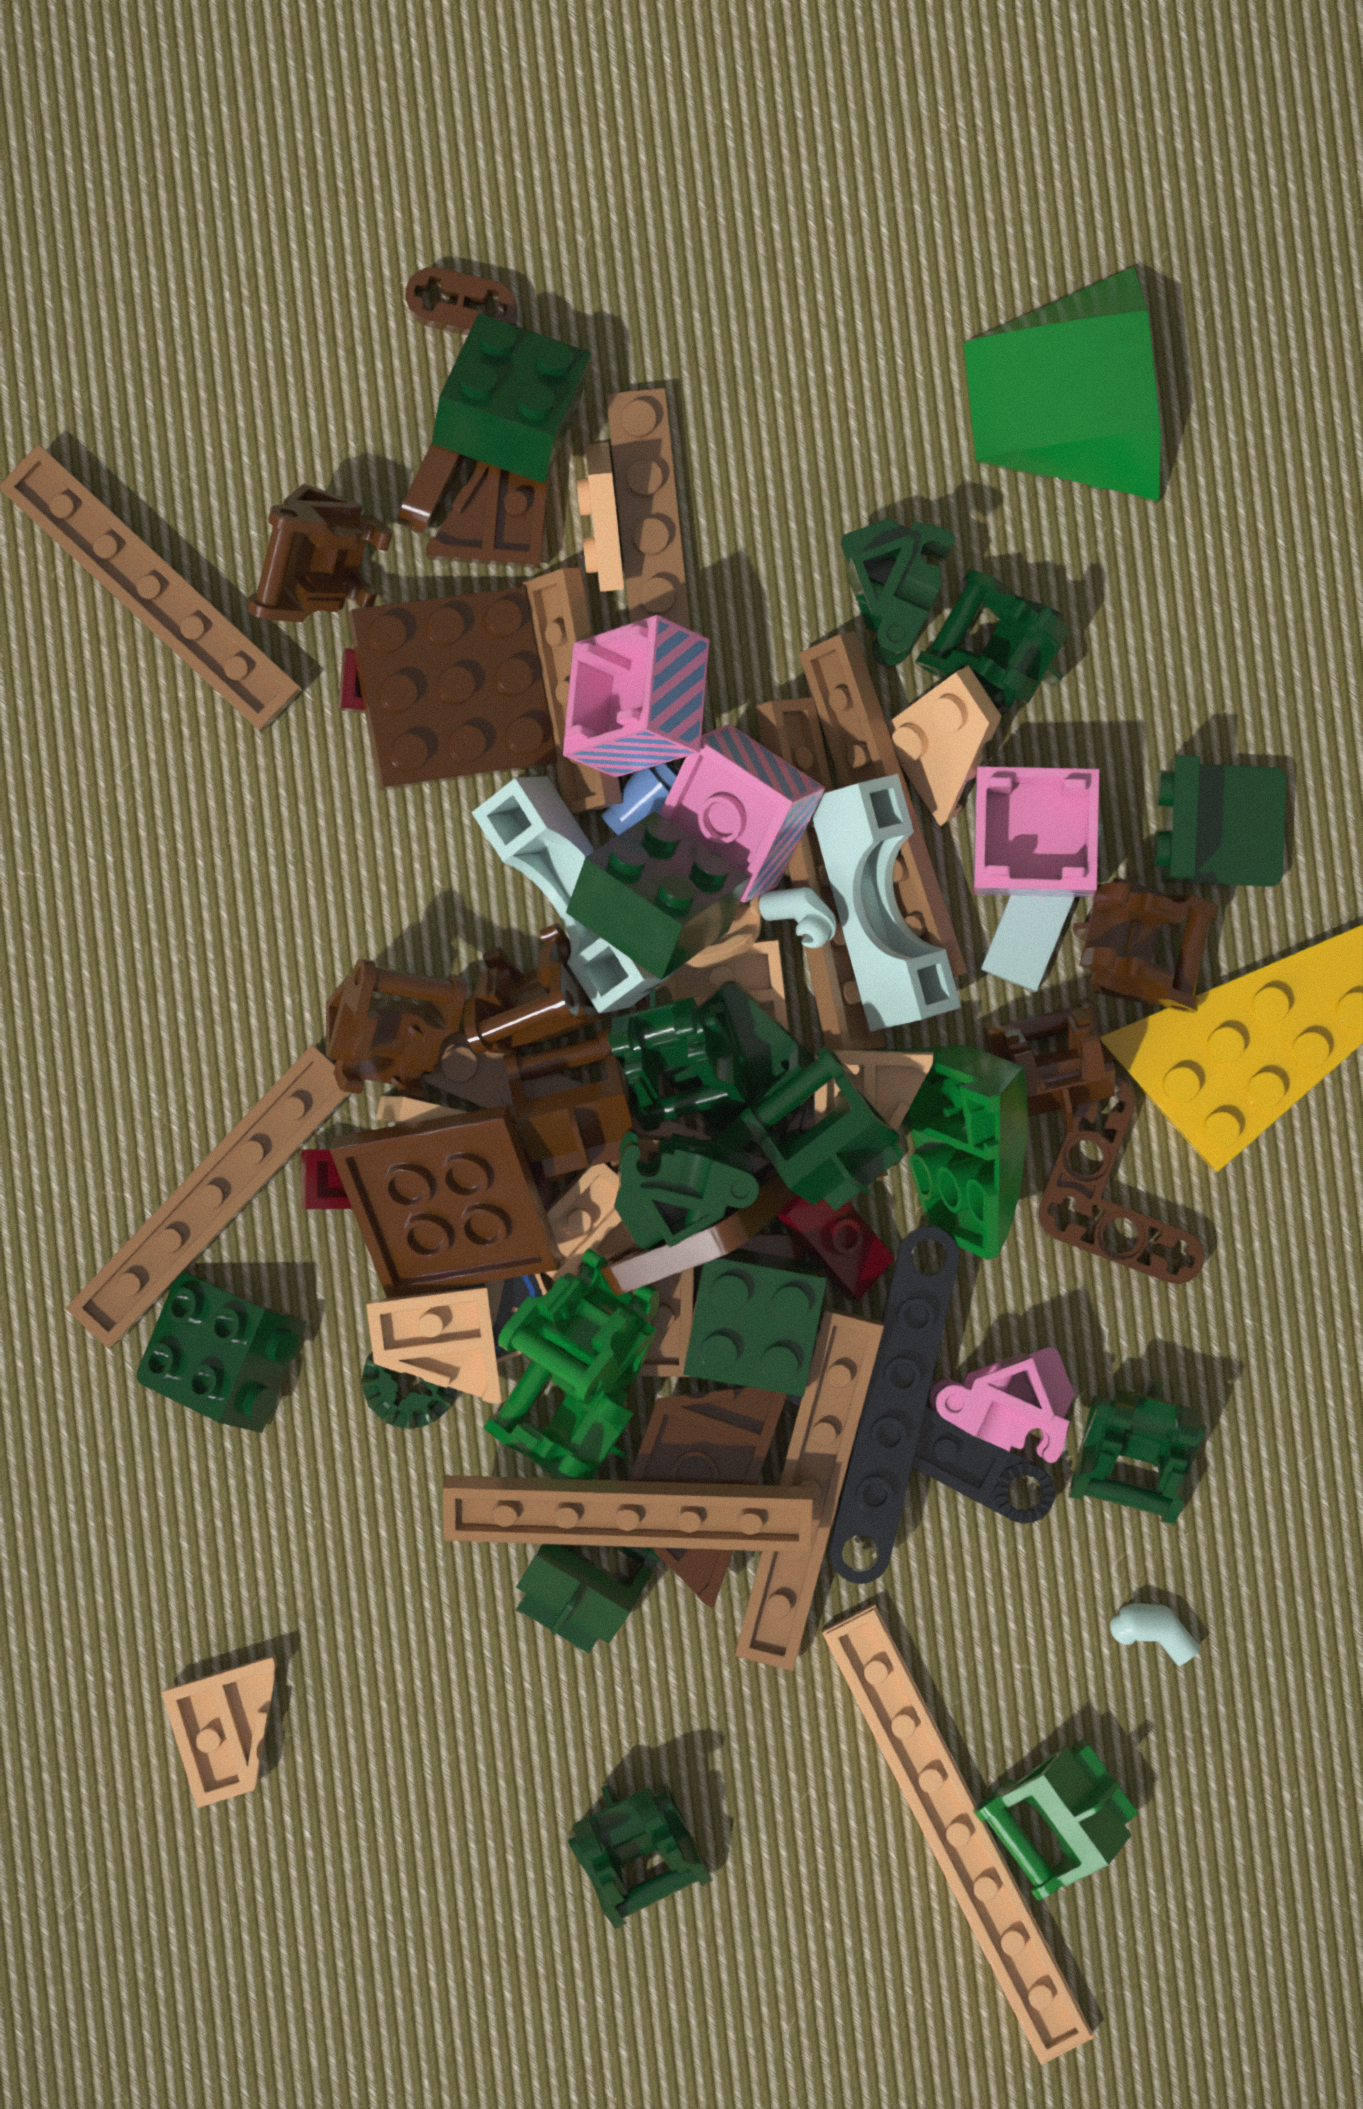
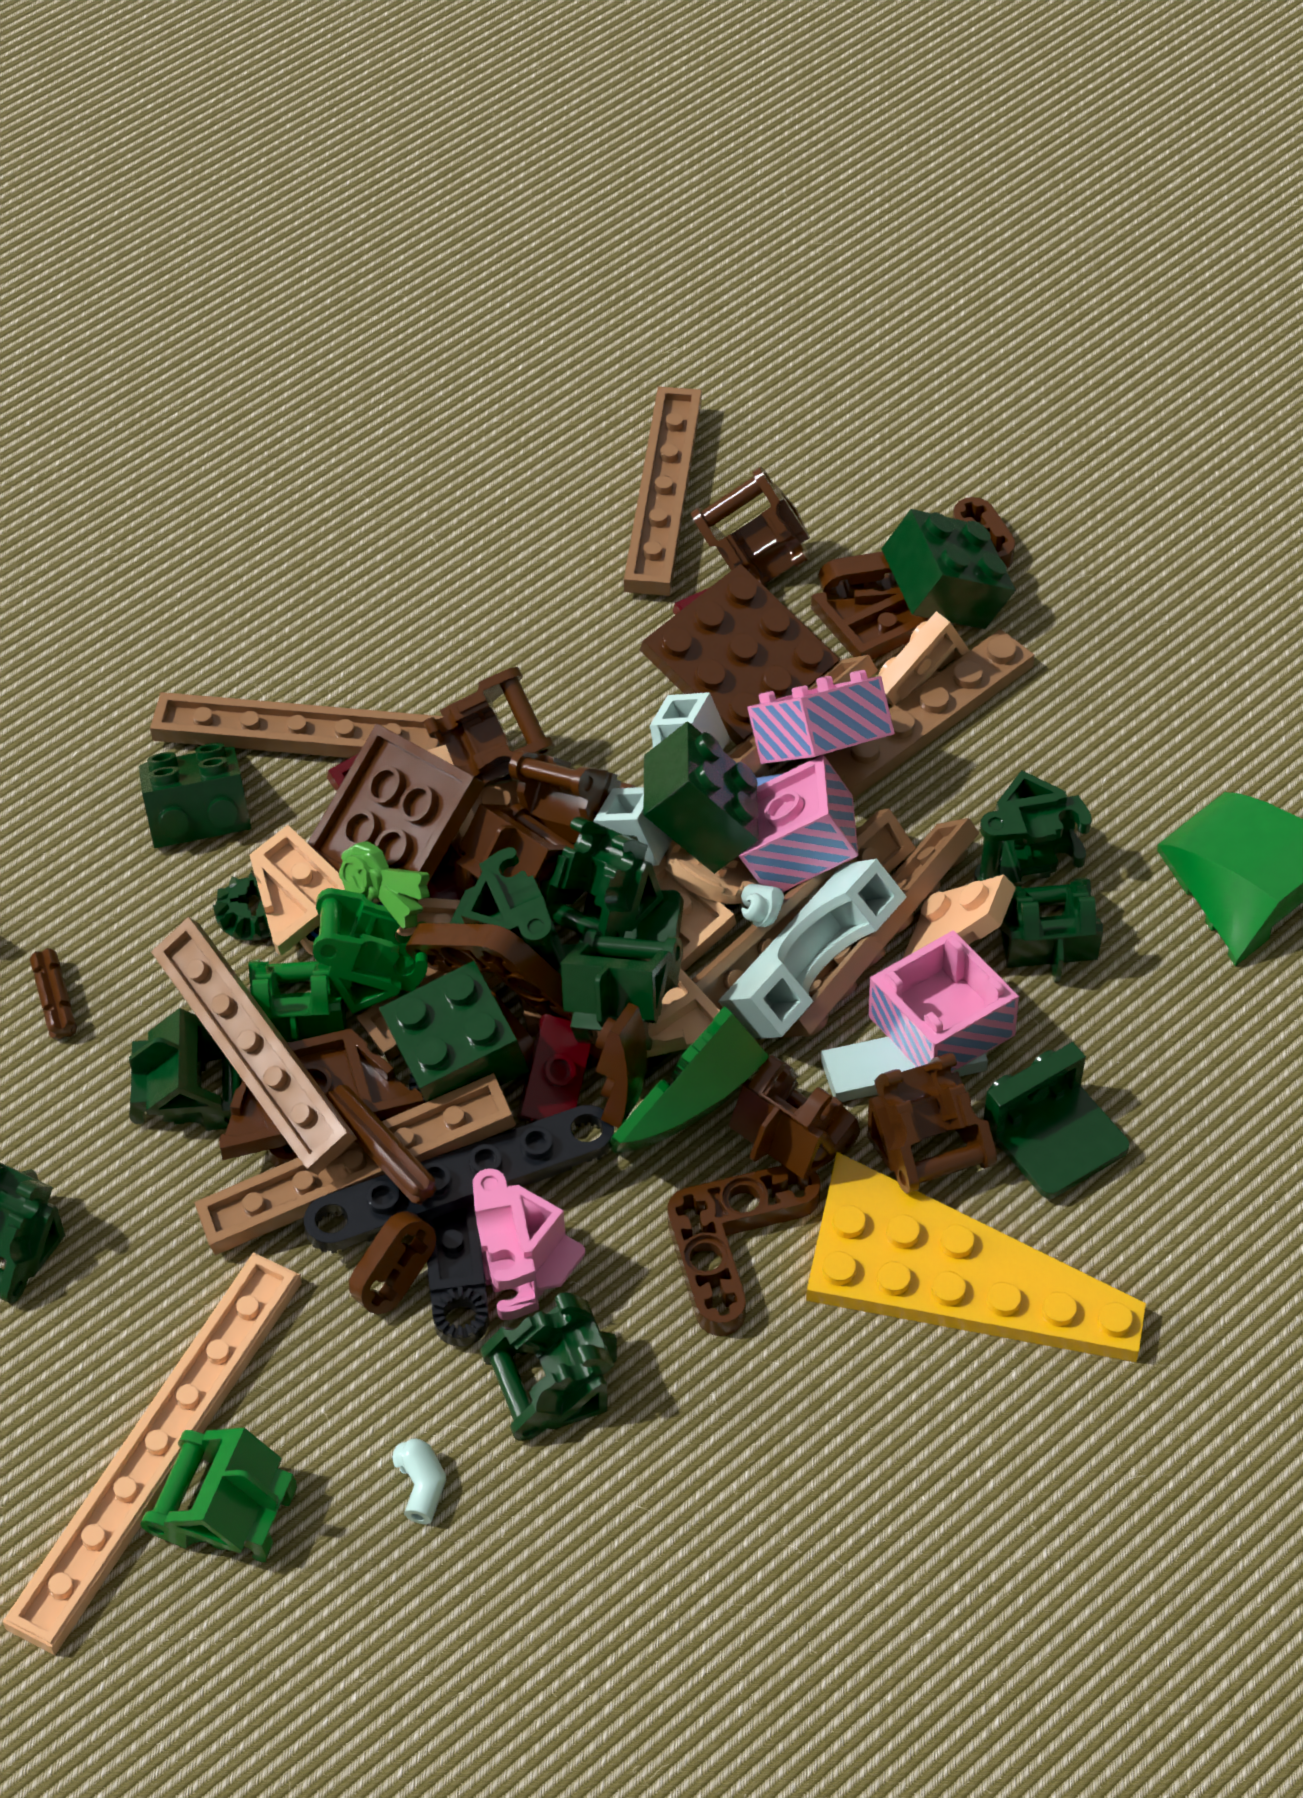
camera: 55 degrees right, 35 degrees down
(380, 1638) = (53, 994): none -> reddish brown axle
(510, 1277) = (367, 872): none -> bright green piece
(826, 1465) = (383, 1146): none -> reddish brown axle
(909, 1192) = (623, 1063): none -> reddish brown slope
(936, 1522) = (392, 1262): none -> reddish brown beam

